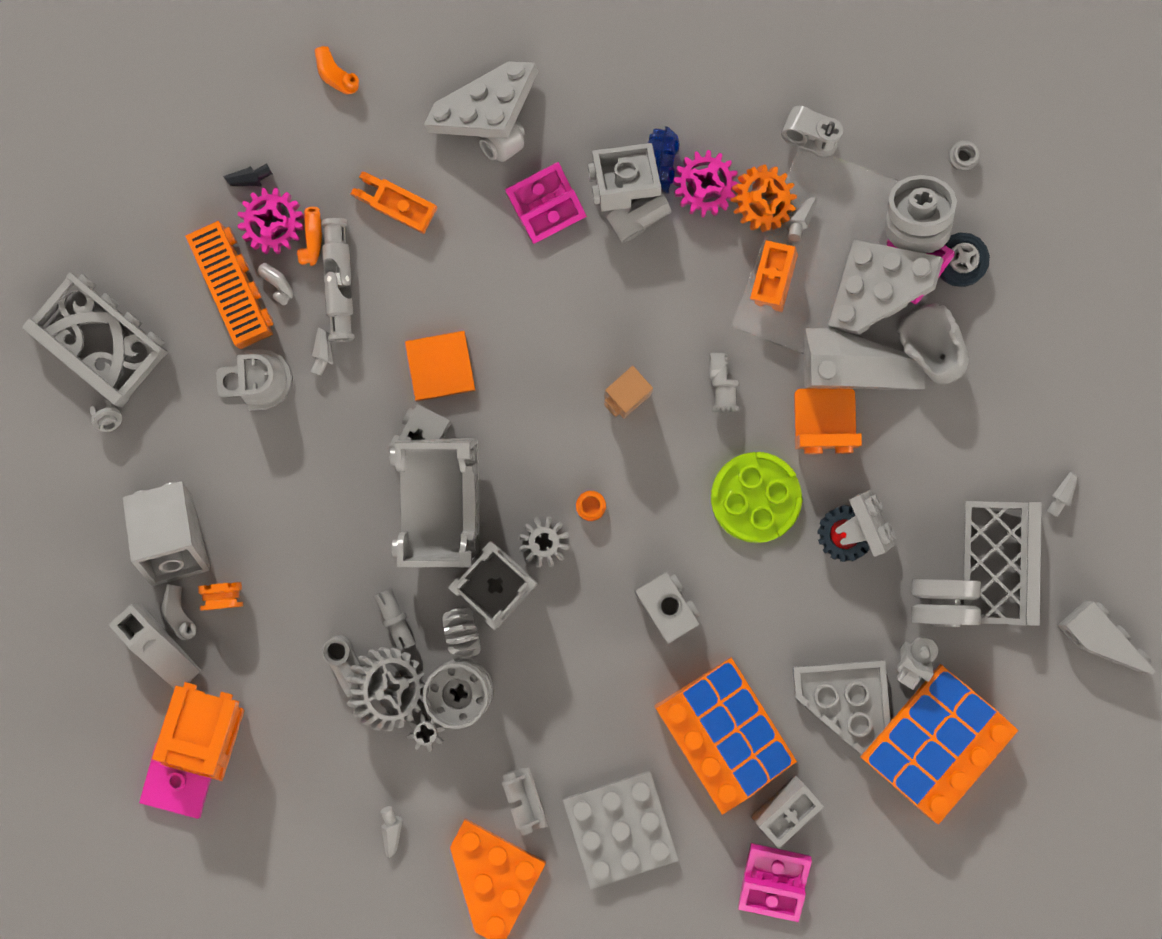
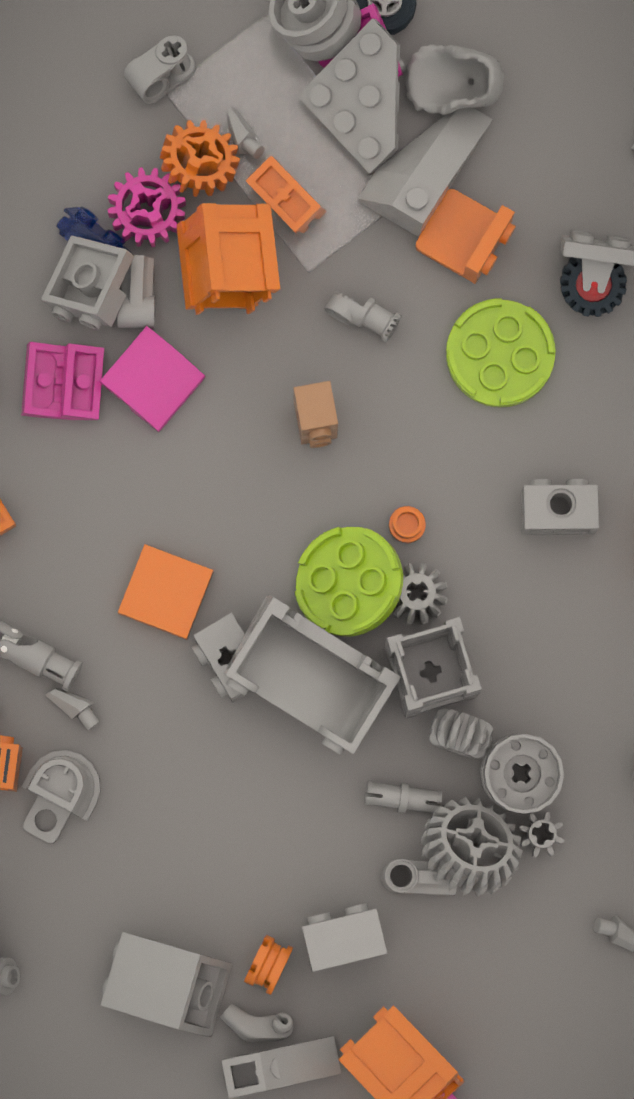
camera: 60 degrees left, 5 degrees down
(267, 637) = (344, 938): none -> light grey brick
(523, 489) = (349, 581): none -> lime tile
(584, 263) = (152, 379): none -> dark pink slope
(702, 262) = (228, 257): none -> orange container

